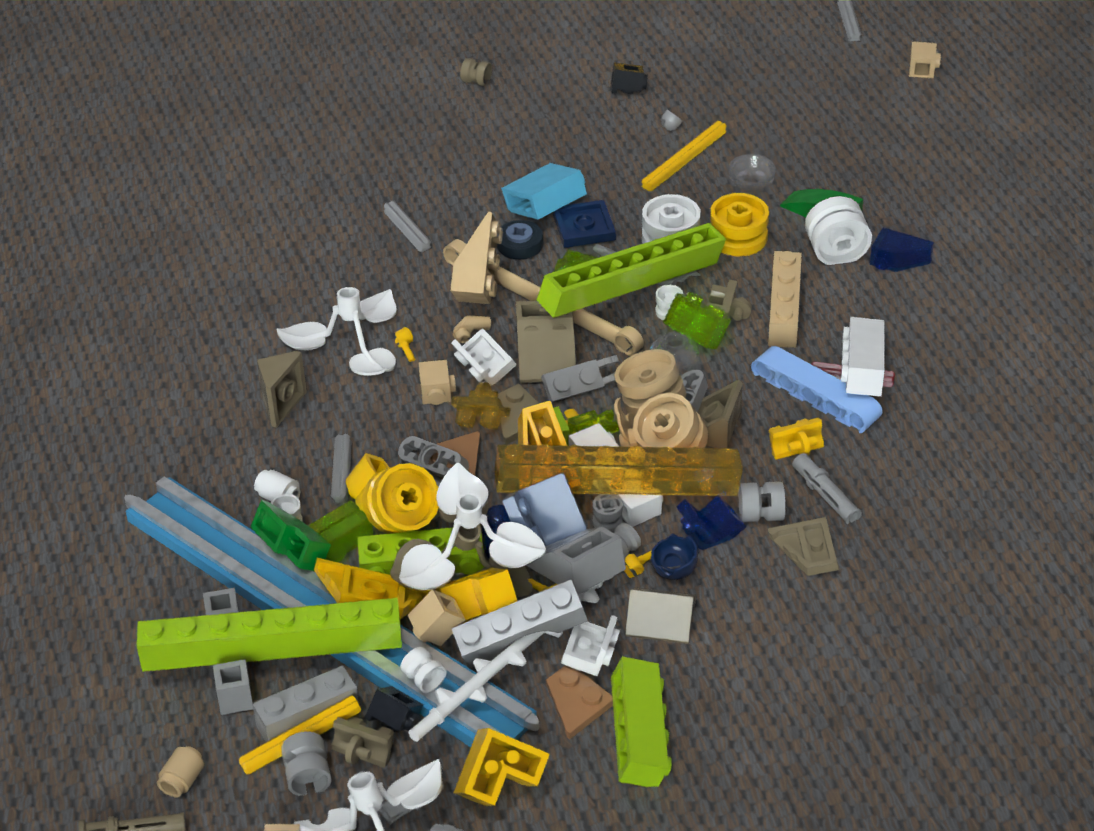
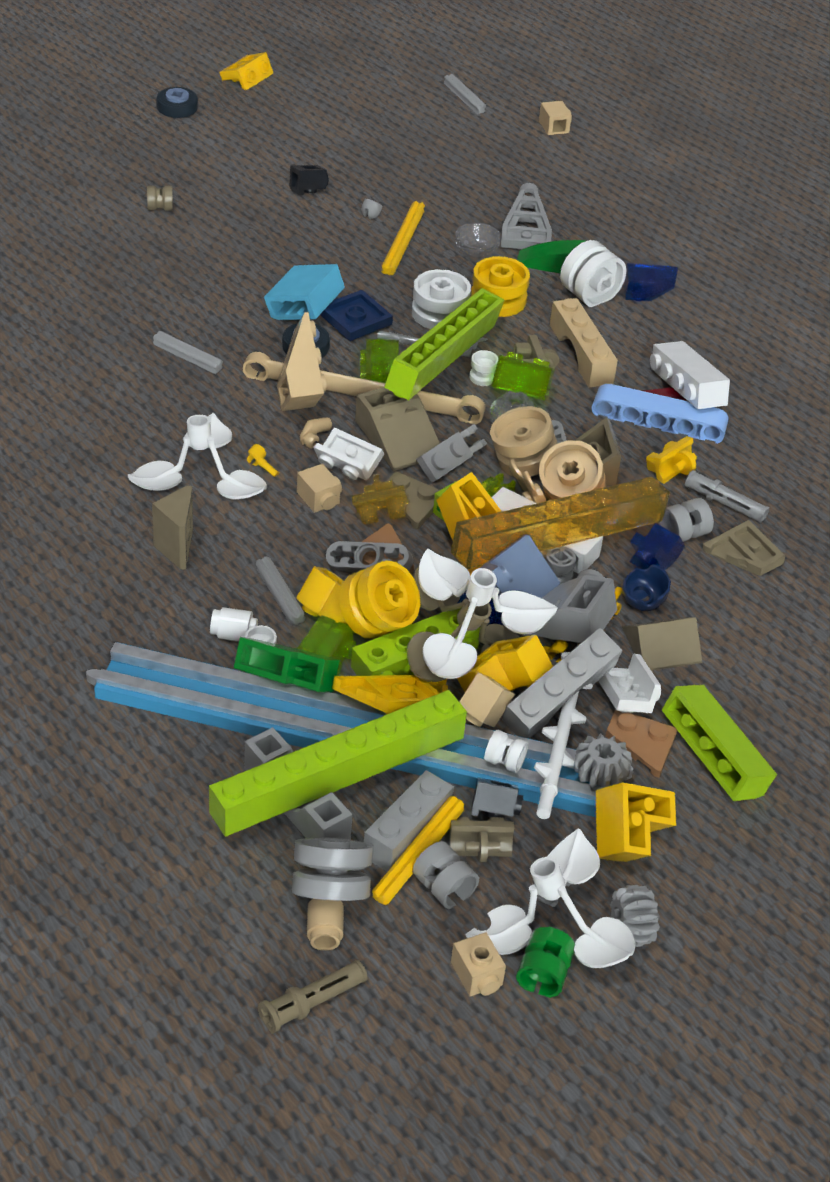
camera: 30 degrees left, 0 degrees up
(203, 726) = (332, 869): none -> light grey wheel
(503, 706) = (602, 761): none -> light grey gear
(798, 177) = (523, 237): none -> light grey plate

